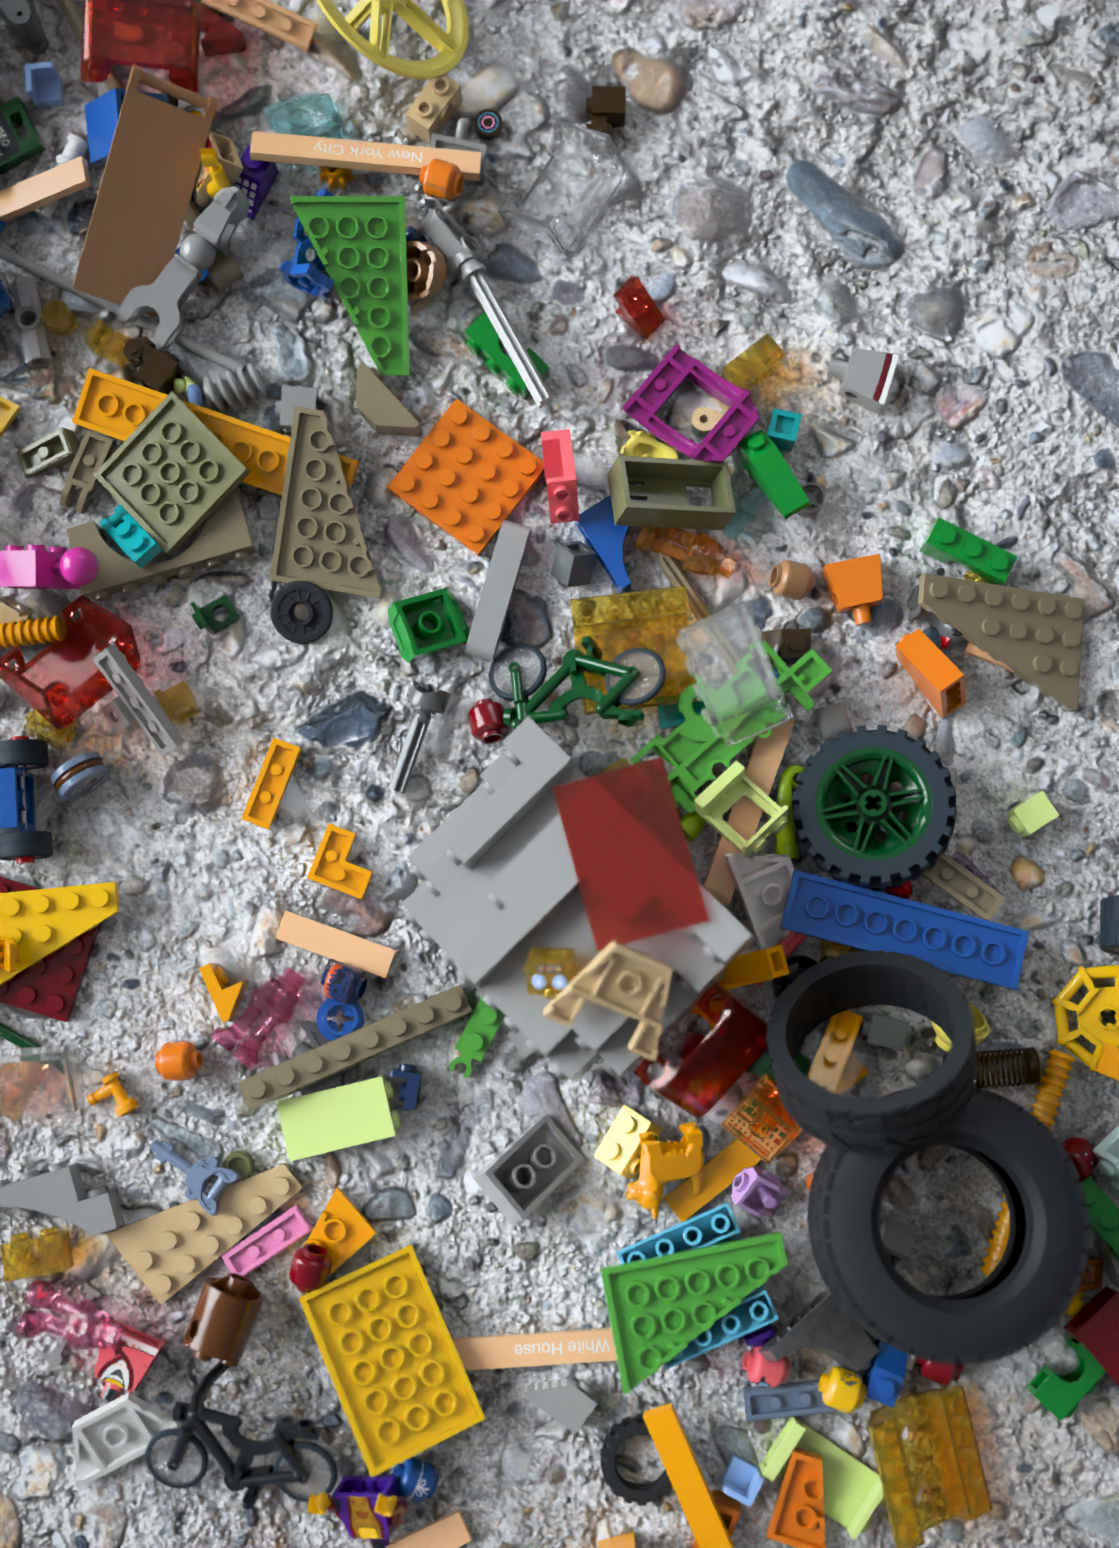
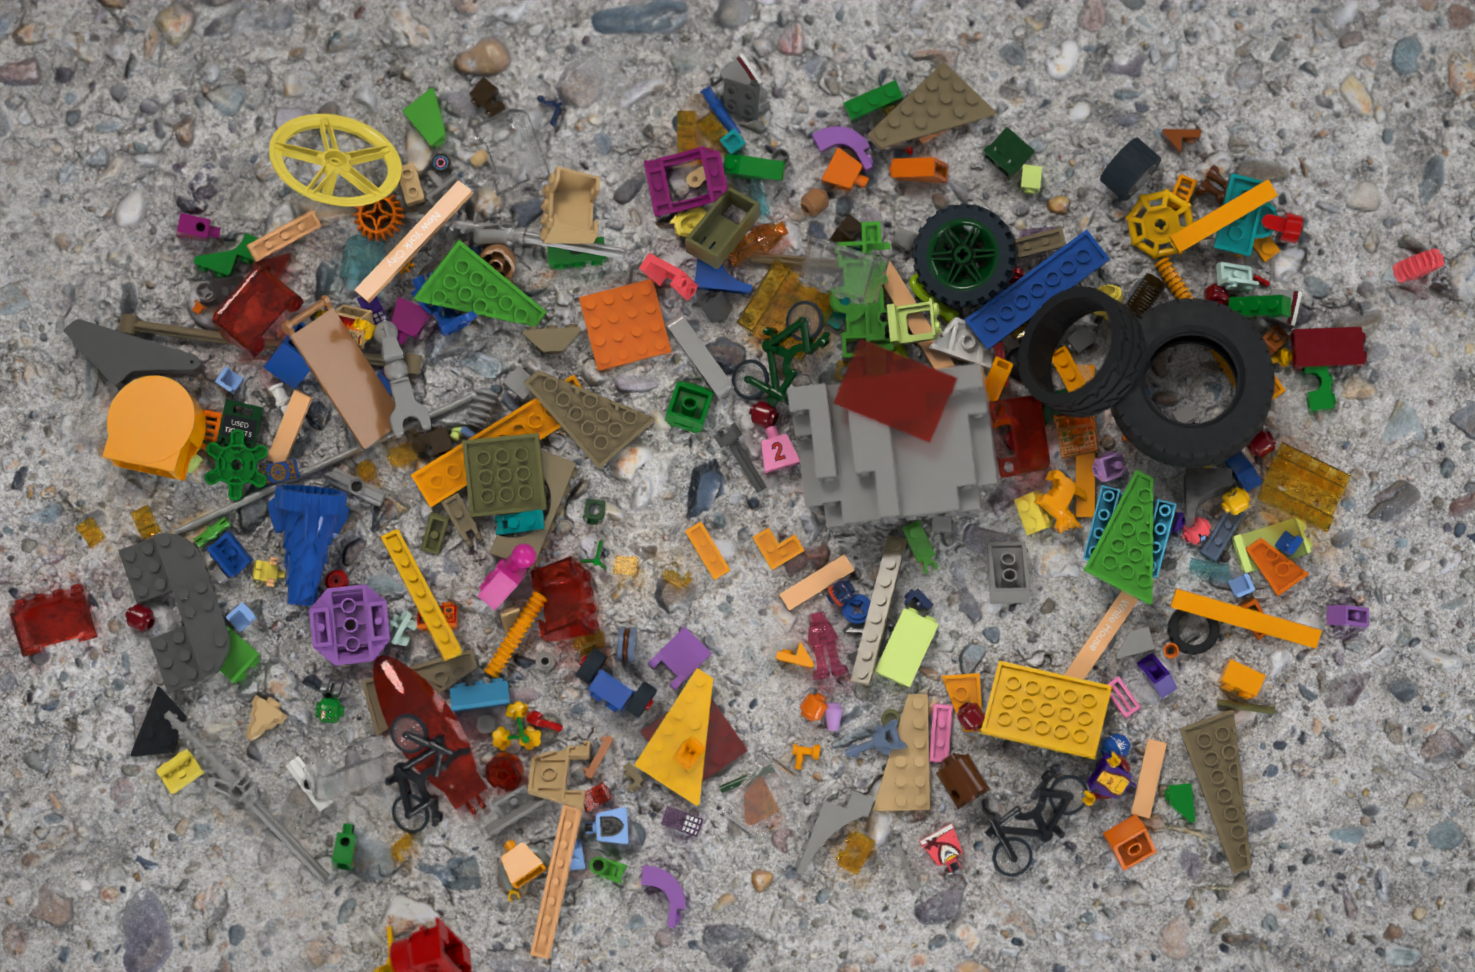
camera: 55 degrees left, 0 degrees up
(88, 1324) = (912, 847): clear pink piece -> none
(115, 1436) = (977, 881): white wing -> none
(121, 853) = (681, 656): none -> medium lavender flag
(135, 702) = (612, 585): light grey plate -> none
(153, 660) = (596, 560): none -> green plant
(187, 1093) = (833, 715): none -> lavender cone
(205, 769) = (673, 578): none -> clear yellow bracket
(271, 227) = (409, 319): none -> magenta torso
(319, 612) = (640, 470): black wheel -> none
(361, 100) = (379, 231): none -> orange gear
(441, 180) = (462, 213): orange head -> none
(456, 770) = (777, 451): none -> bright pink torso
(477, 1462) = (1128, 693): none -> bright pink tile
(528, 66) = (427, 118): none -> bright green slope
(528, 159) = (479, 158): none -> tan tile
(546, 1461) = (1157, 675): none -> dark purple slope
(550, 299) = (569, 207): none -> tan windscreen
(550, 970) = (922, 473): clear yellow head -> none
(587, 1460) = (1174, 647): none -> orange hose
(625, 983) = (955, 441): tan wing -> none
(638, 307) = (607, 165): clear red slope -> none
(662, 196) = (553, 122): none -> dark blue piece
(734, 1417) = (1208, 566): none -> clear light blue pin
(780, 390) = (711, 128): none -> clear yellow bracket
(812, 376) = (716, 105): none -> blue pin
(843, 1501) = (1288, 543): none -> blue bracket
(845, 396) = (742, 98): none -> dark grey hinge
(897, 554) = (844, 137): none -> medium lavender arch
(1039, 762) = (1008, 152): none -> dark green bracket

